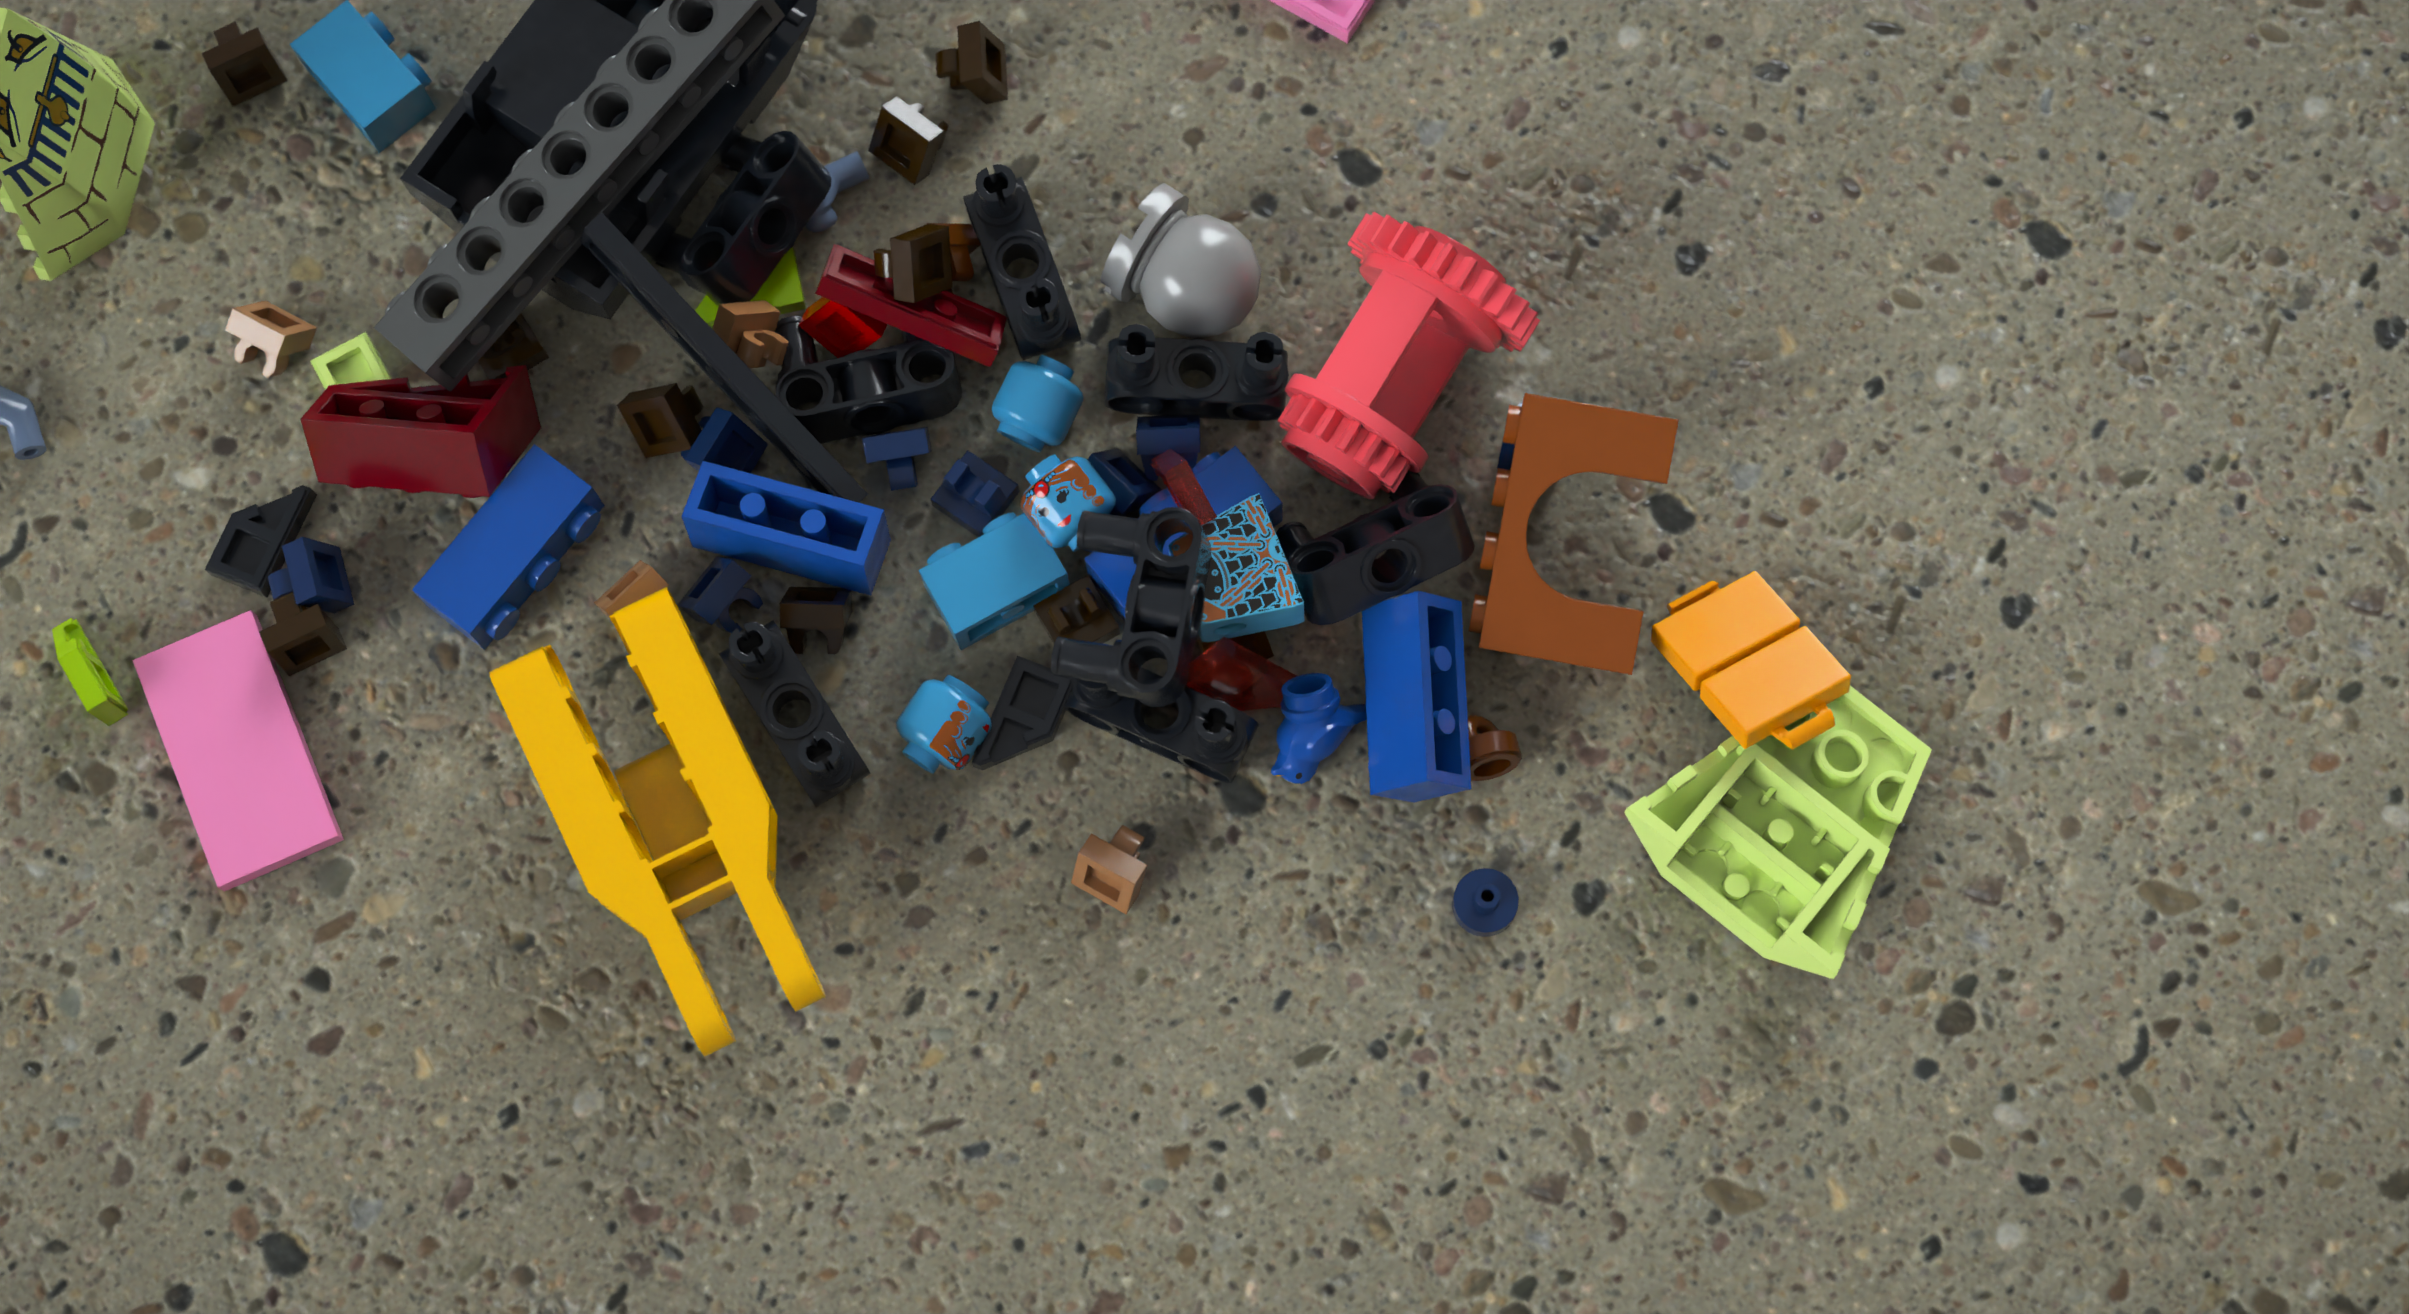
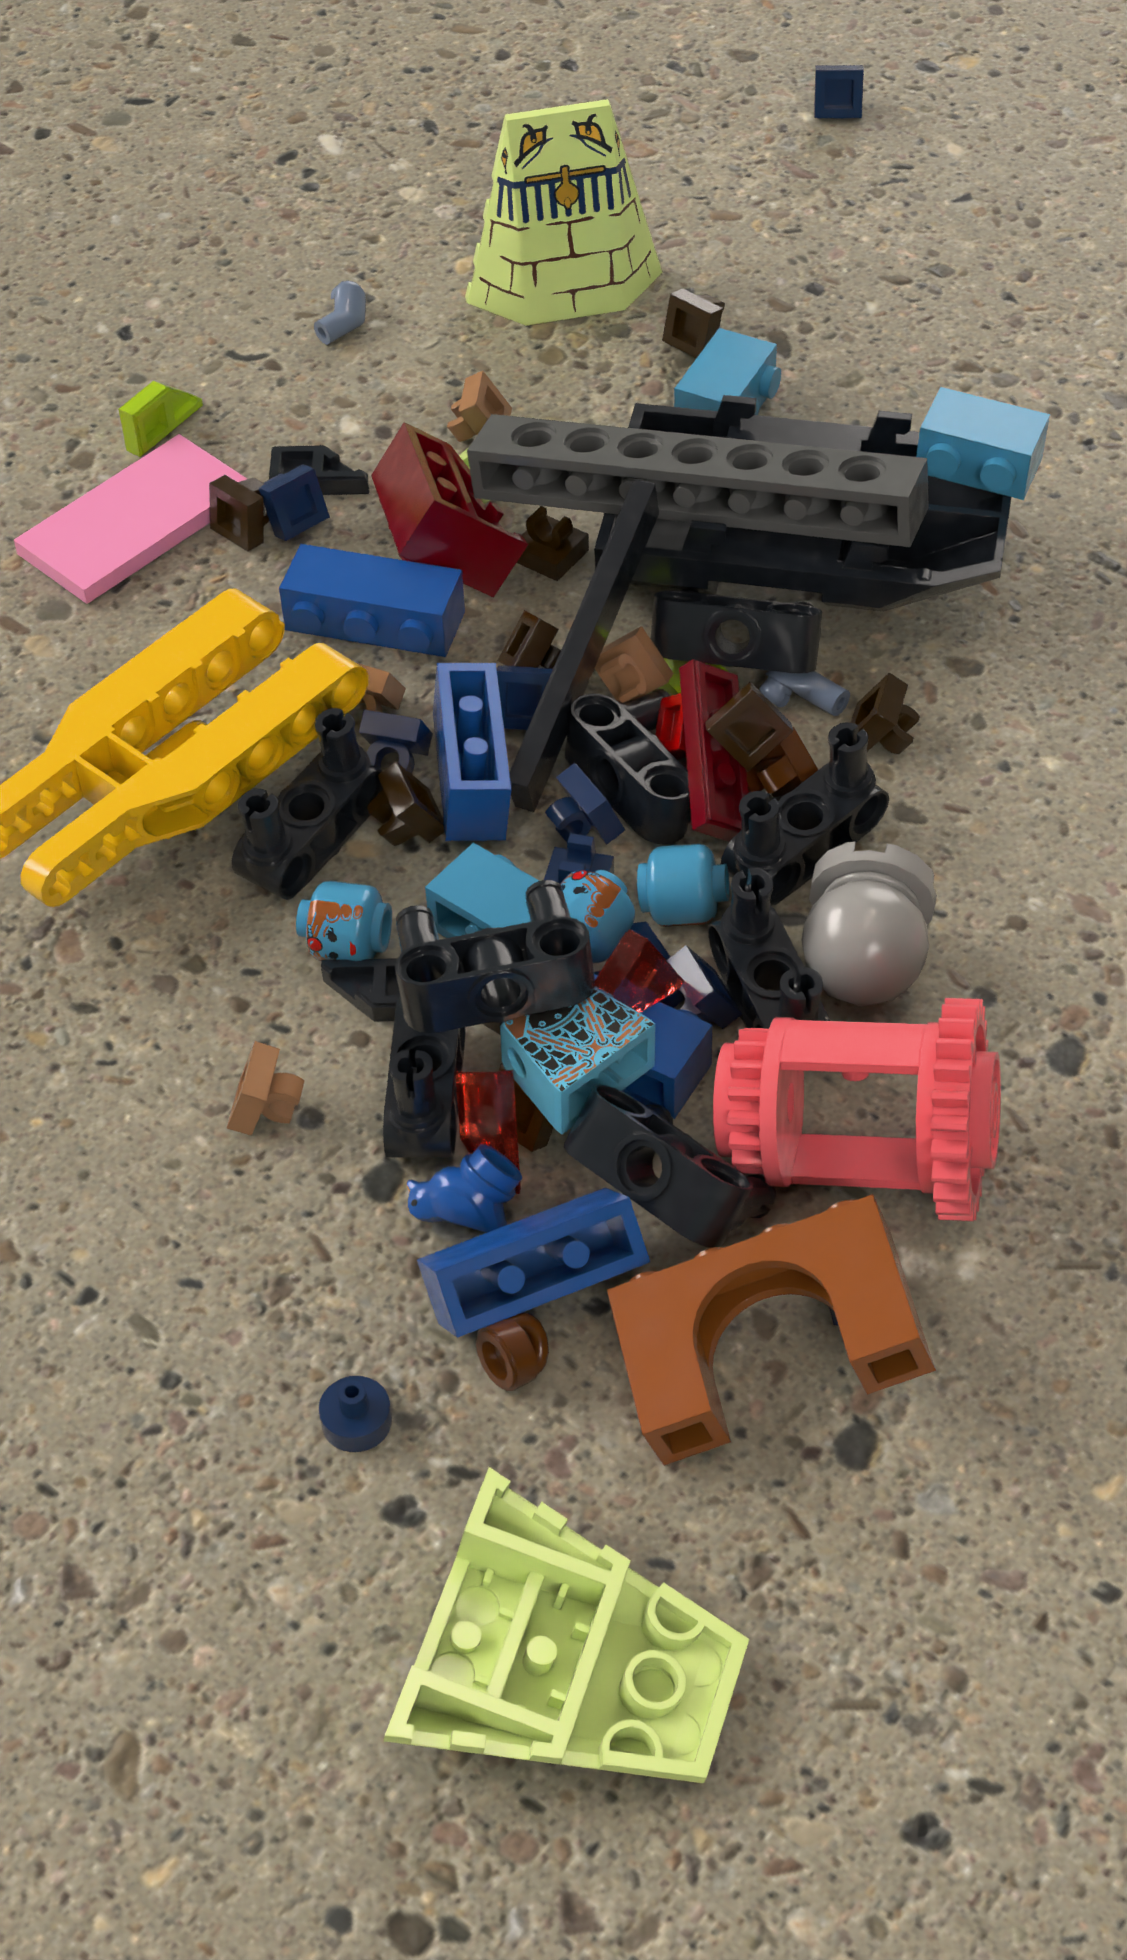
camera: 65 degrees right, 25 degrees down
(976, 63) = (981, 737): dark brown tile -> none
(1751, 661) = (713, 1550): light orange piece -> none

